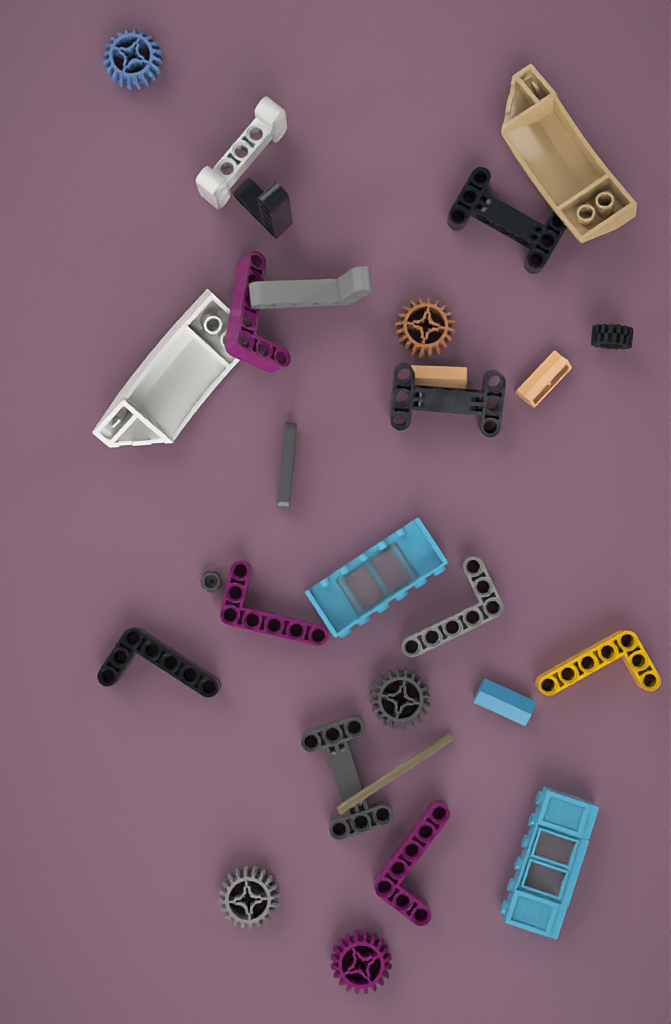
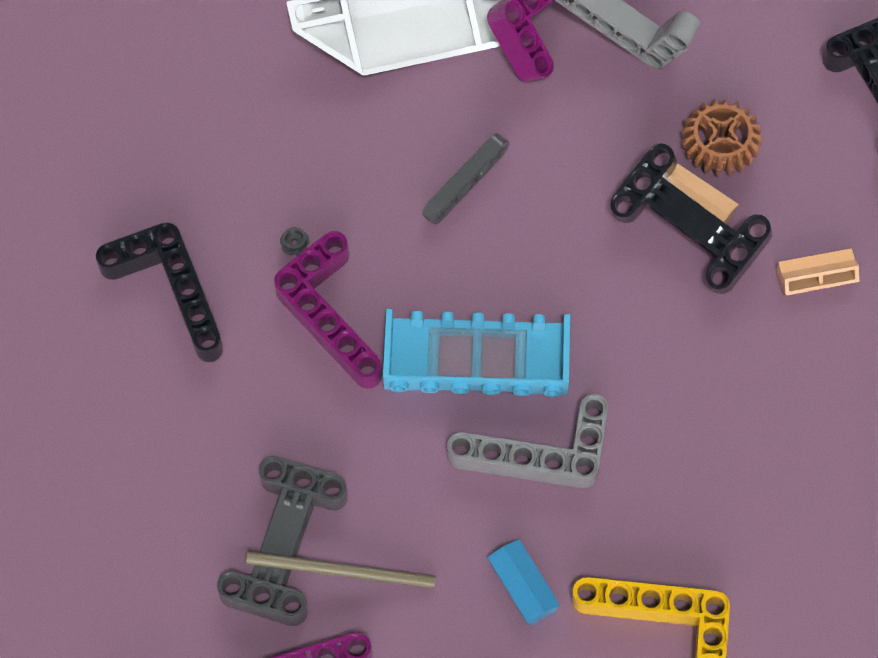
camera: 35 degrees right, 20 degrees down
(240, 899) = (53, 580): light grey gear -> none
(387, 695) = (424, 479): dark grey gear -> none

